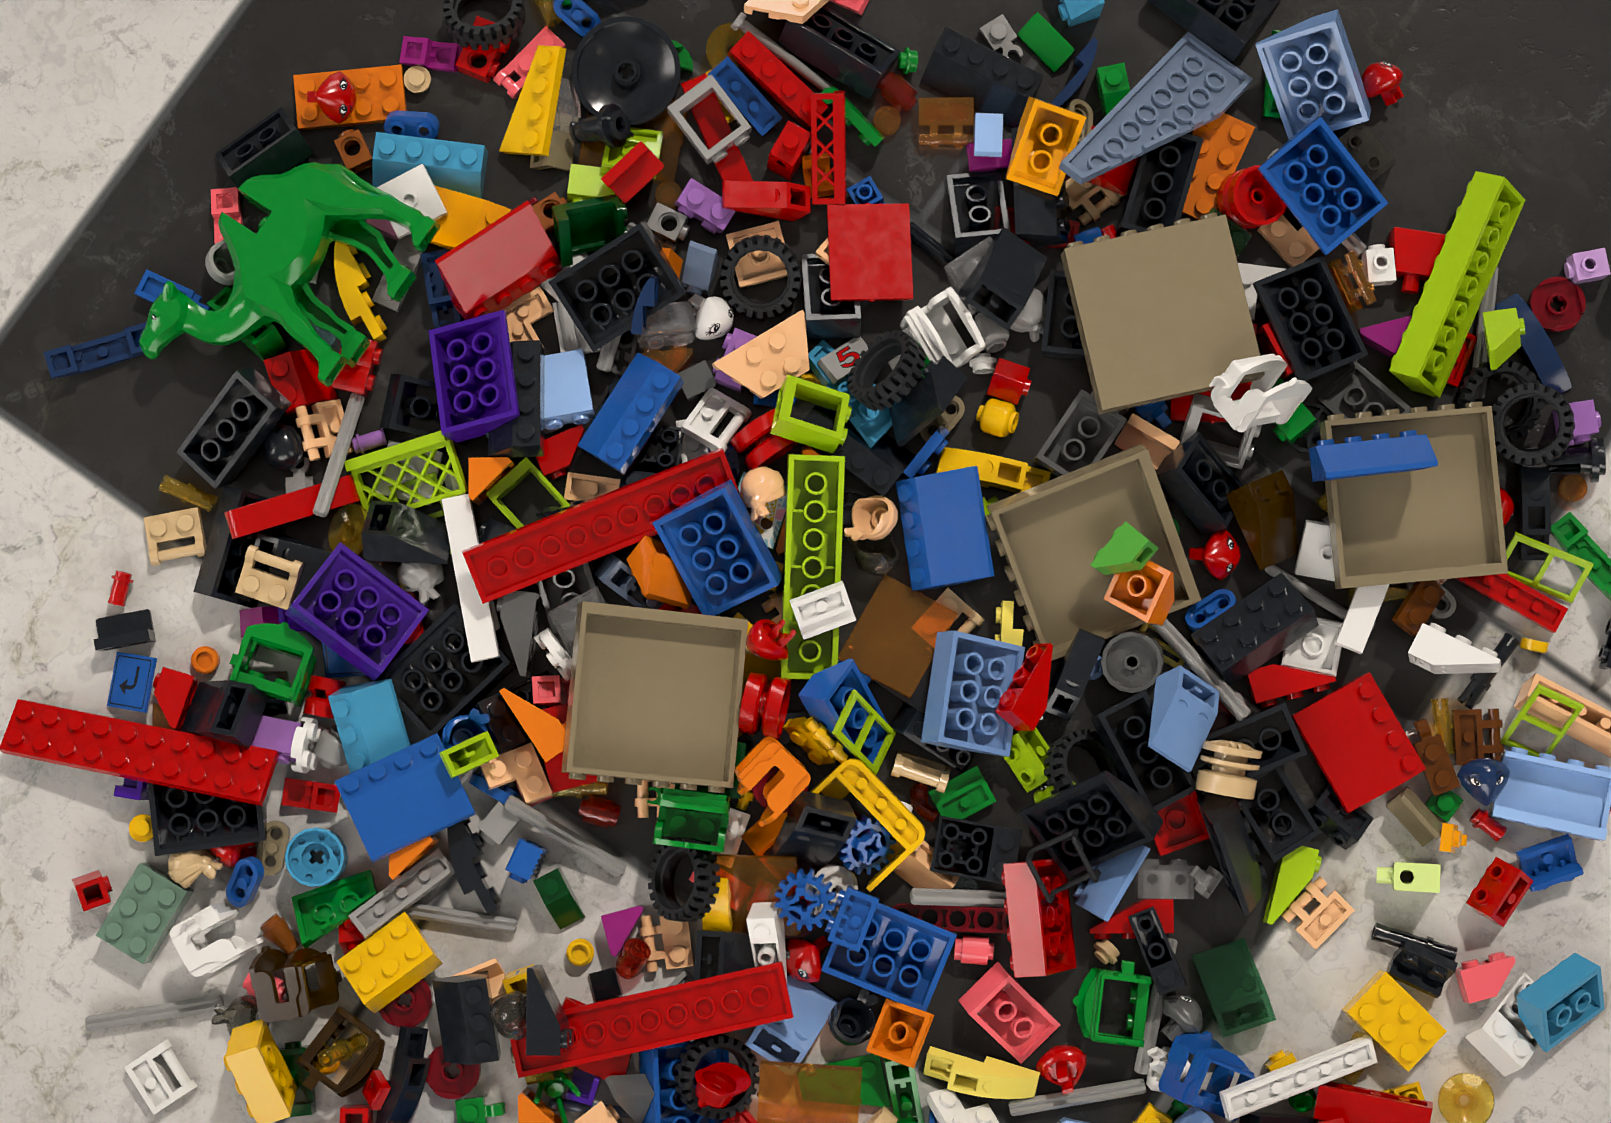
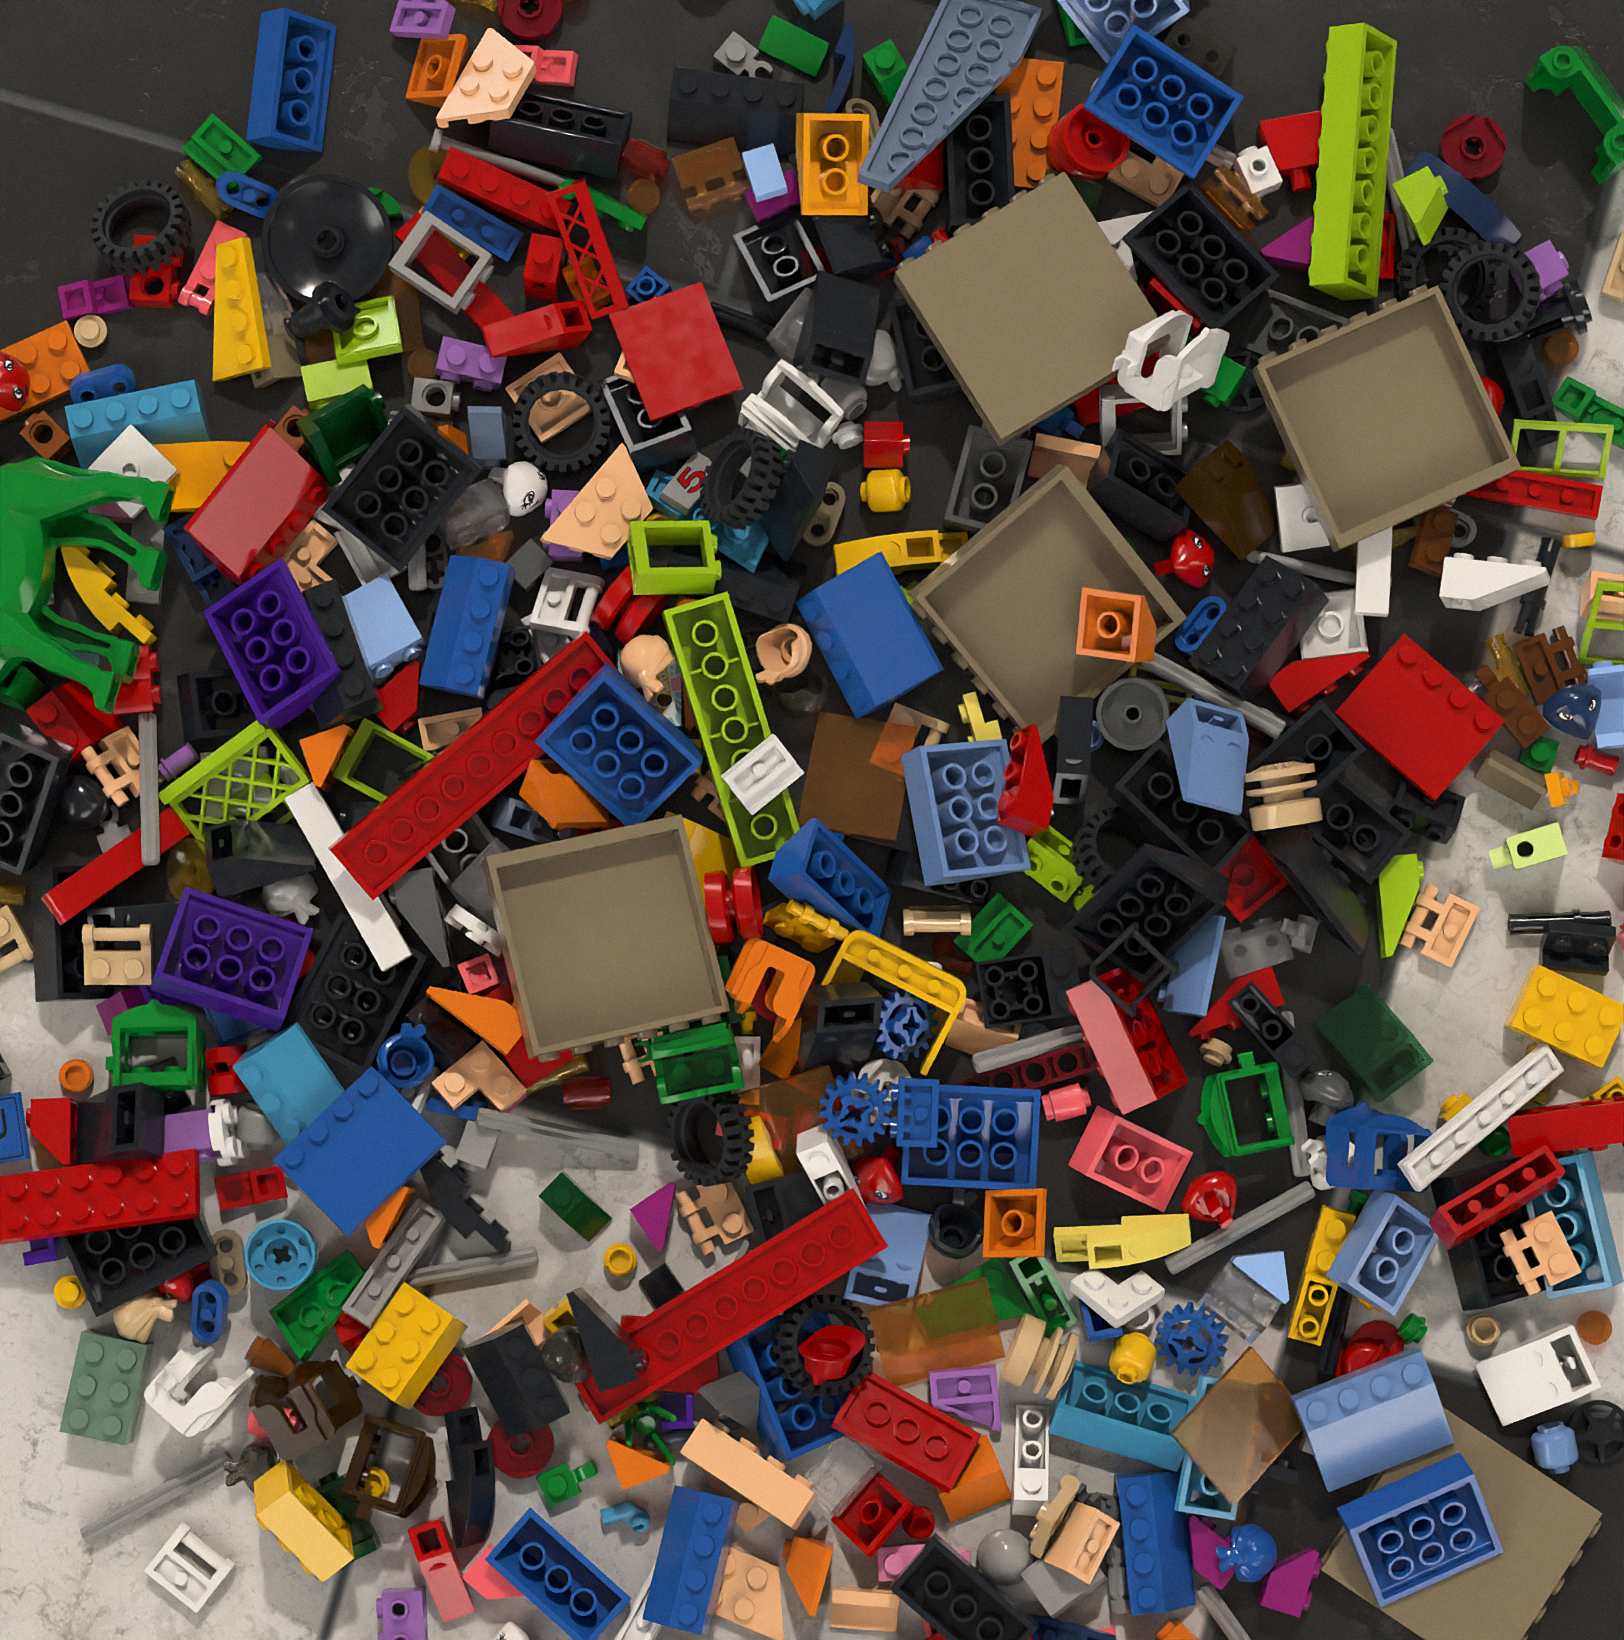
camera: 20 degrees left, 0 degrees up
(92, 890) = (37, 1381): red brick -> none
(342, 1050) = (387, 1463): clear yellow pin -> none
(376, 1089) = (441, 1495): red tile -> none
(469, 754) = (416, 1077): lime slope -> none
(525, 860) = (522, 1176): blue brick -> none
(632, 958) = (682, 1245): clear red brick -> none
(633, 172) = (374, 352): red panel -> none
(647, 297) = (441, 487): dark blue slope -> none
(768, 641) = (712, 831): red piece -> none
(855, 748) = (860, 875): lime window -> none
(907, 60) = (644, 120): green plate -> none
(934, 444) = (824, 545): blue plate -> none
(1124, 552) = (1081, 591): bright green slope -> none
(1371, 457) = (1322, 388): blue slope -> none
(1587, 266) = (1492, 92): lavender brick -> none

